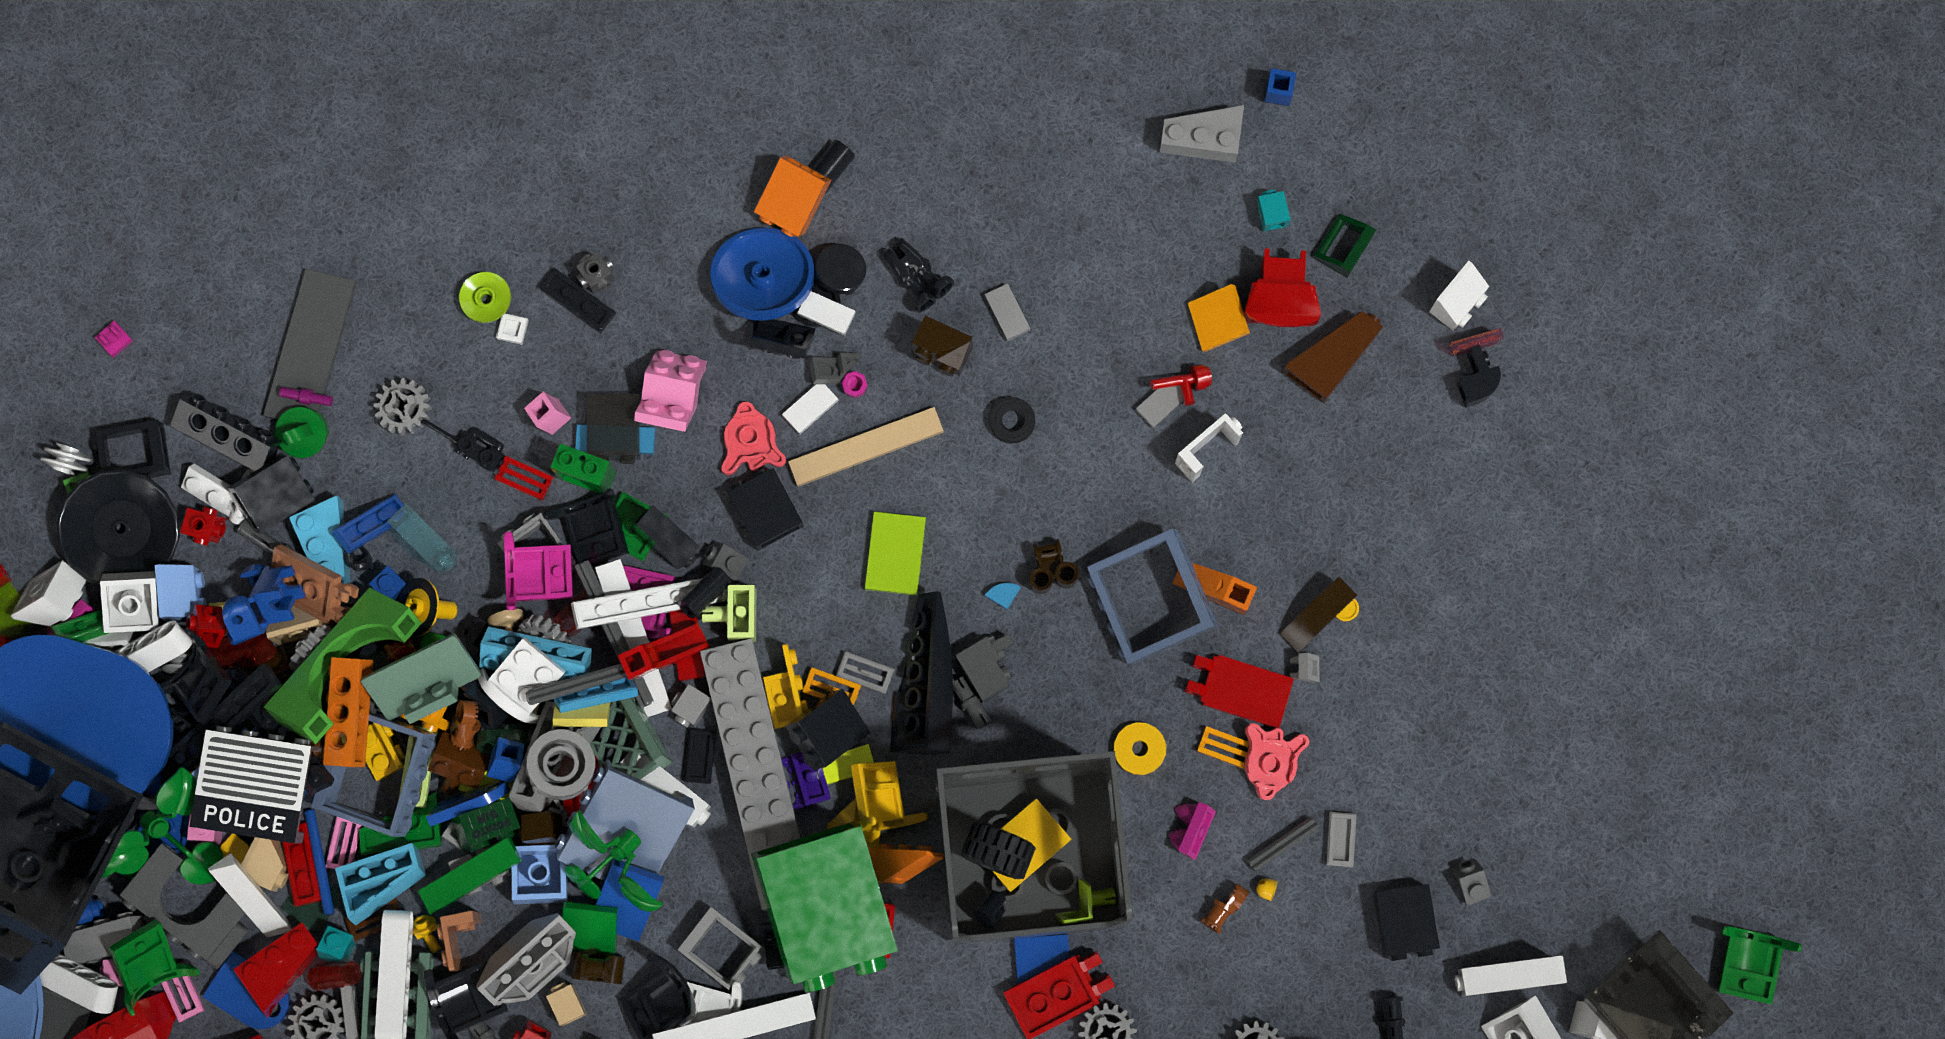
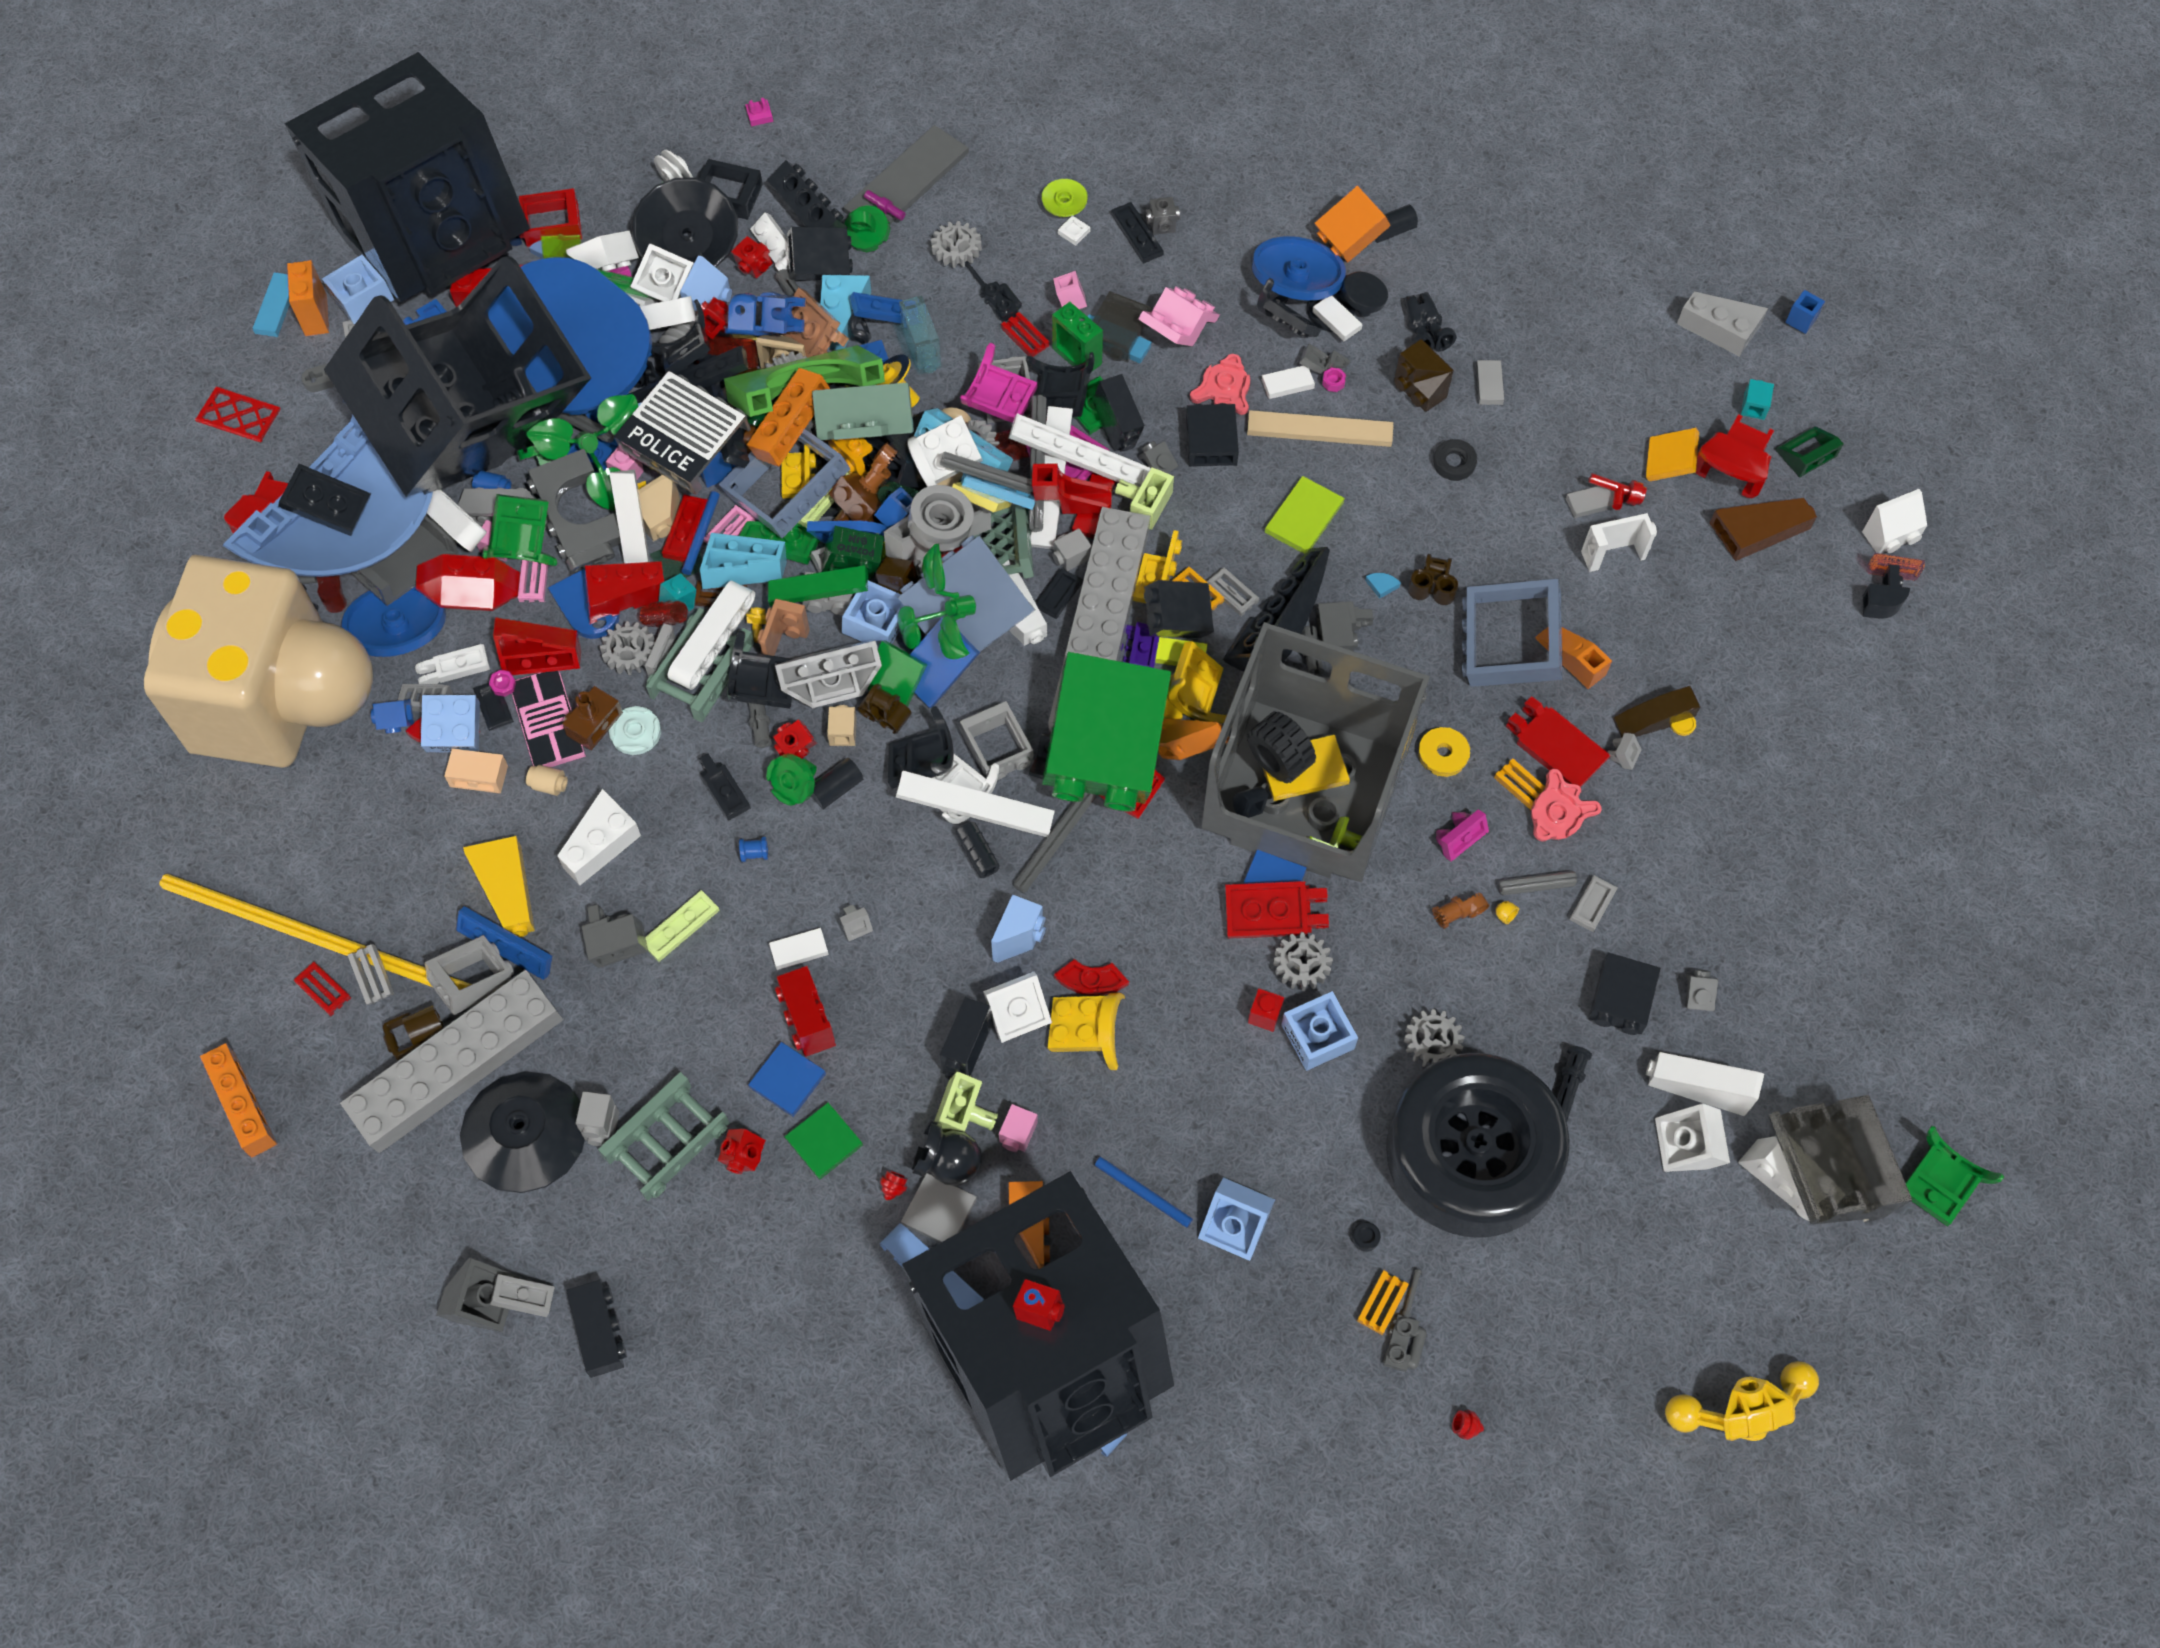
camera: 25 degrees right, 15 degrees down
(704, 592) = (1128, 466): black axle -> none

